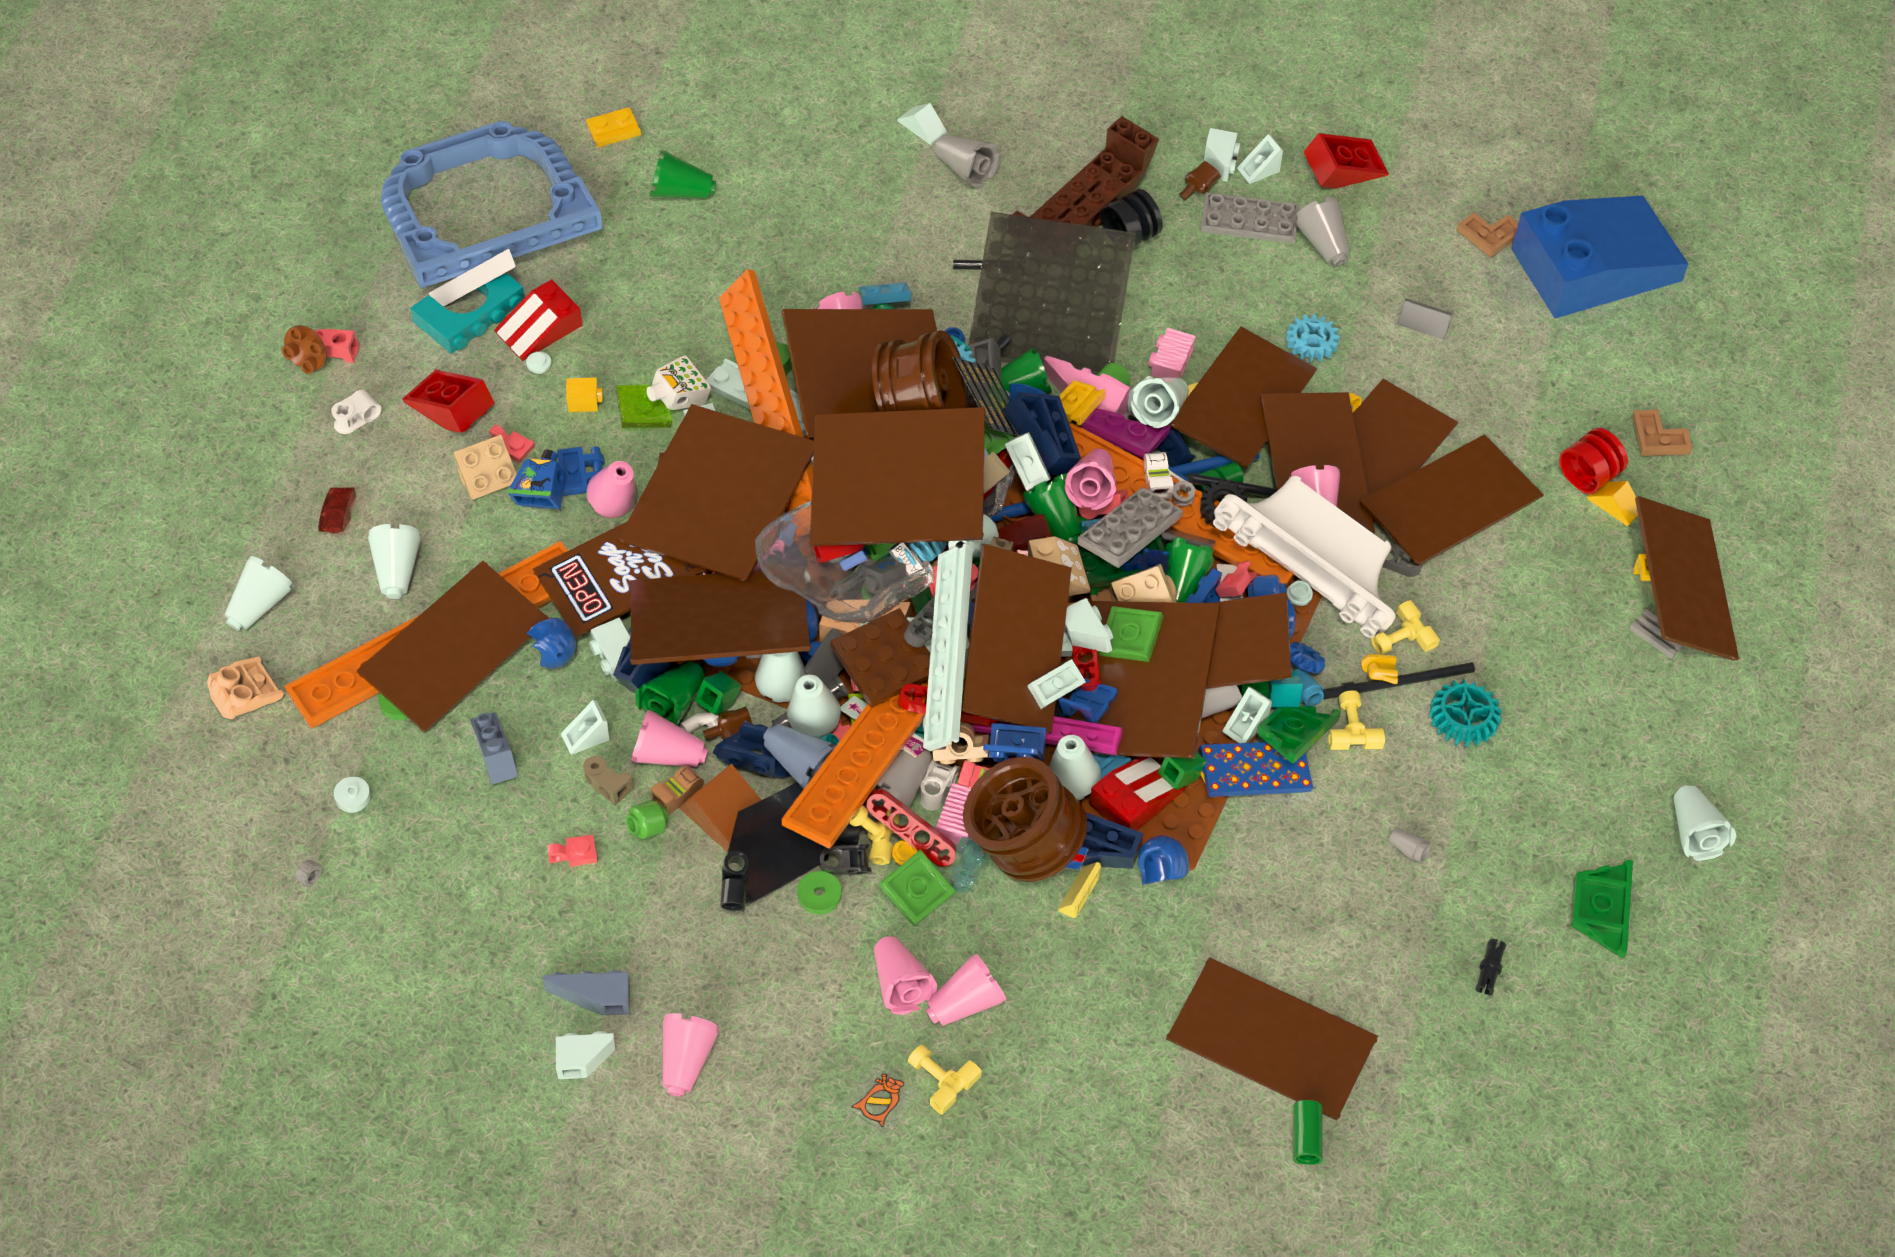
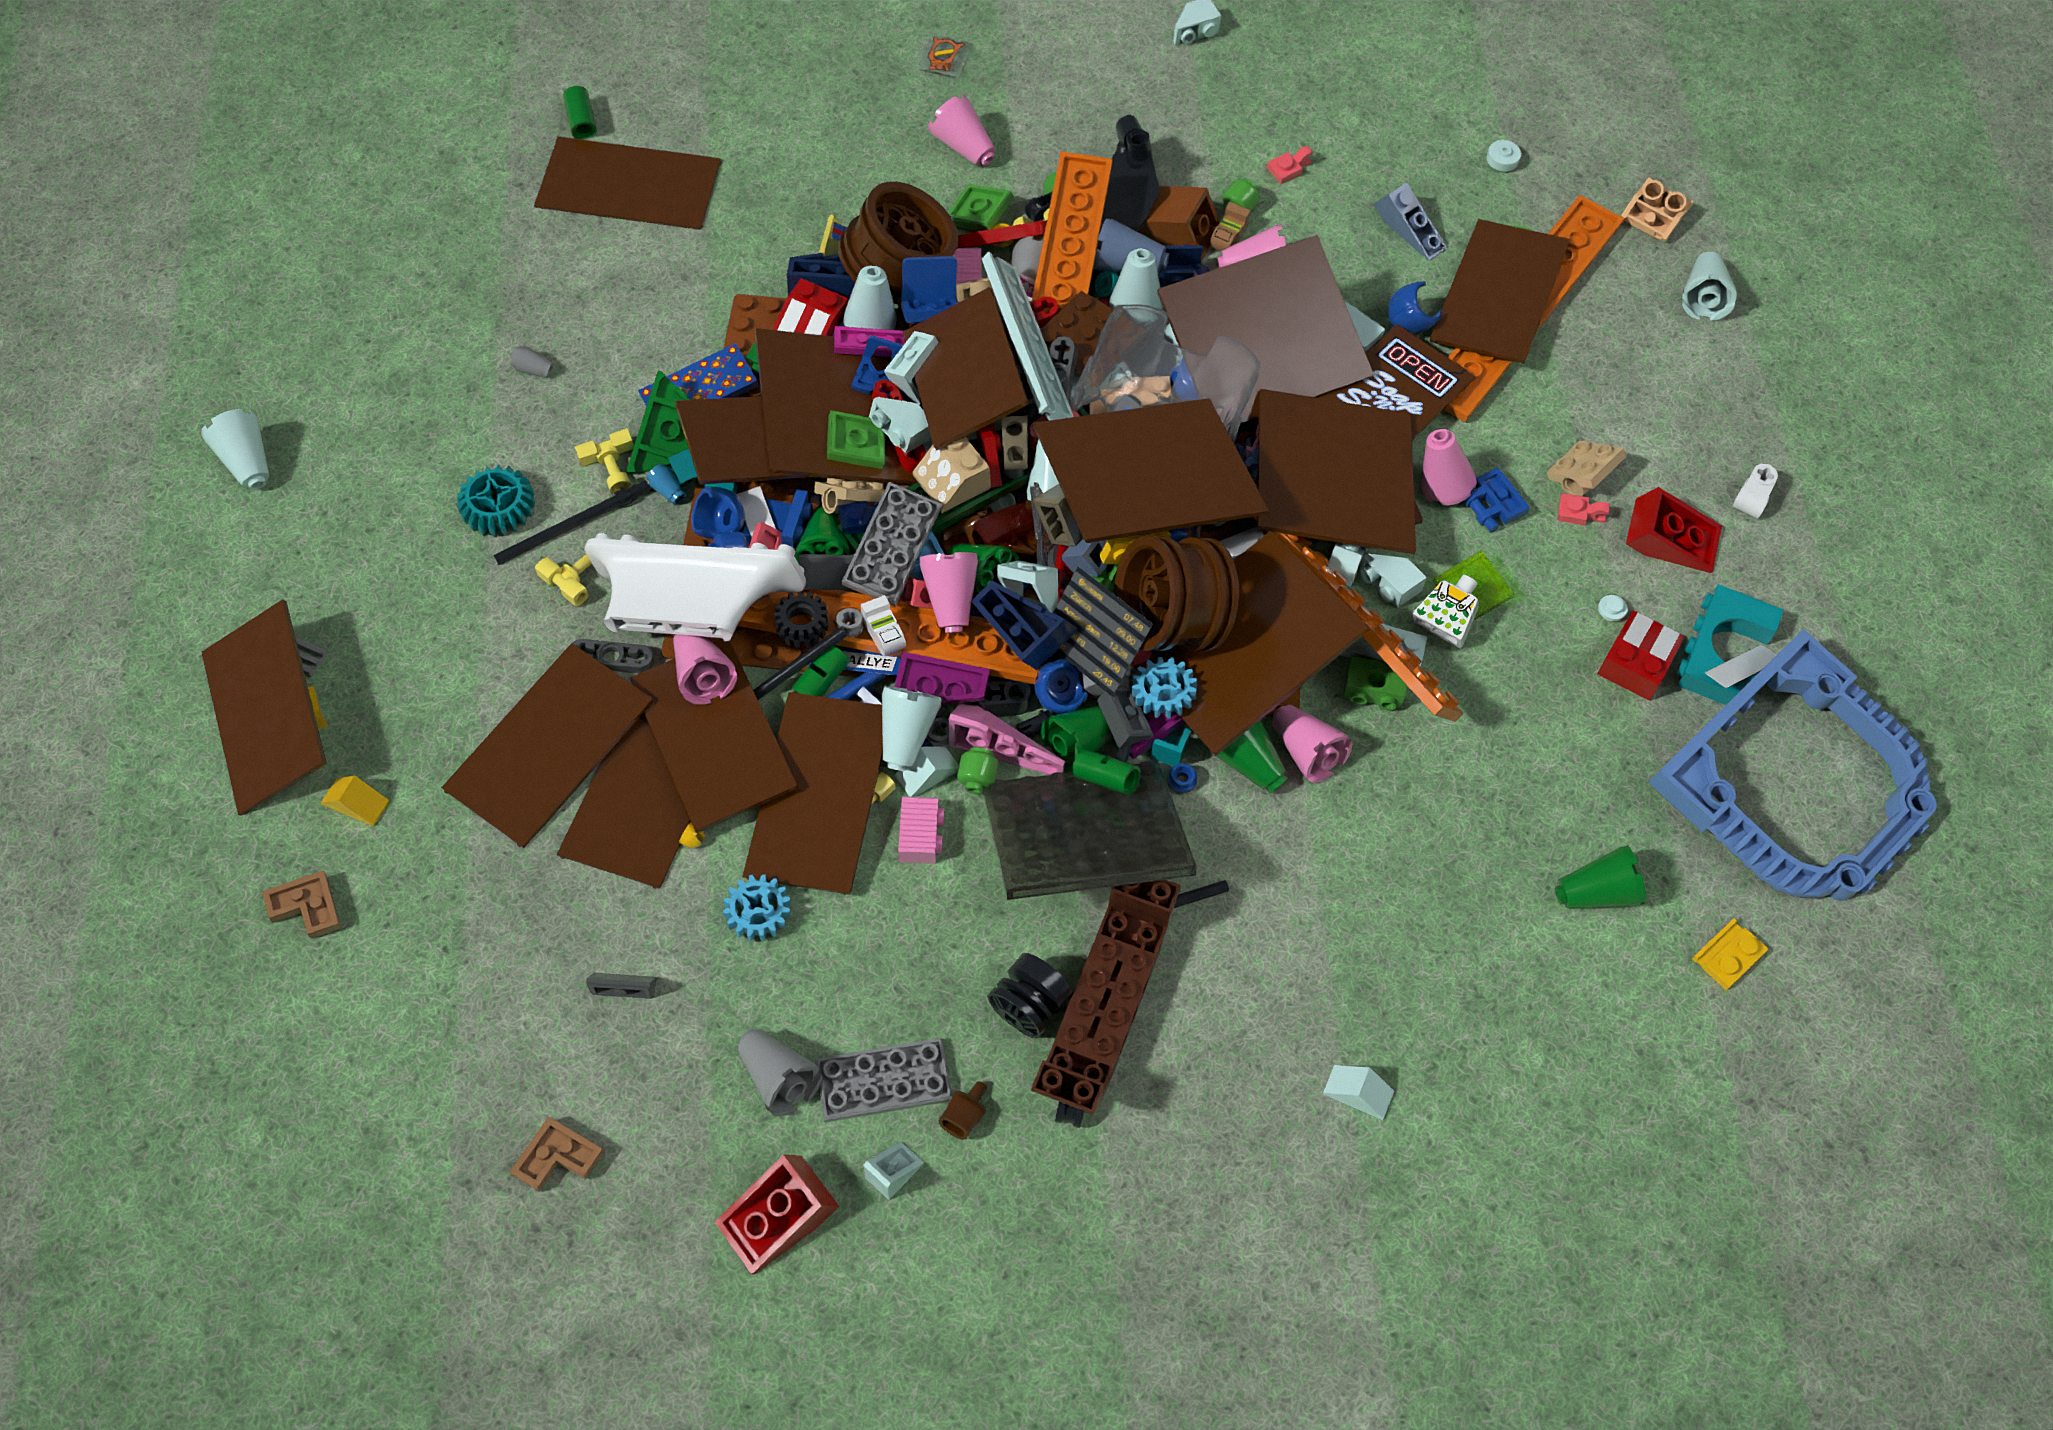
camera: 160 degrees right, 5 degrees up
(304, 348) = (1844, 532): dark orange dish -> none
(308, 872) = (1496, 90): light grey axle -> none
(335, 510) = (1700, 389): clear red slope -> none
(340, 343) = (1830, 558): coral leg -> none
(394, 557) = (1612, 351): light aqua cone -> none
(539, 482) = (1521, 459): blue torso -> none
(583, 394) = (1542, 577): yellow brick -> none
(586, 729) = (1338, 256): light aqua slope -> none
(597, 992) = (1211, 63): sand blue slope -> none
(606, 781) = (1296, 220): dark tan leg -> none
(685, 1051) = (1116, 42): bright pink cone -> none
(885, 293) = (1285, 805): dark azure plate -> none
(949, 1082) = (892, 77): light yellow bar -> none
(965, 993) = (897, 133): bright pink cone -> none
(969, 158) = (1277, 1035): light grey cone -> none
(1018, 327) = (1106, 771): none -> green pin
(1080, 400) = (1003, 690): yellow plate -> none
(1162, 860) = (761, 275): blue piece -> none
(1220, 150) = (952, 1168): light aqua slope -> none
(1306, 658) = (684, 506): blue gear -> none
(1380, 667) = (597, 509): yellow piece -> none
(1490, 967) = (438, 281): black pin -> none
(1593, 460) = (386, 816): red wheel -> none
(1595, 252) = (398, 1150): blue slope -> none
(1603, 905) = (334, 360): green wing -> none

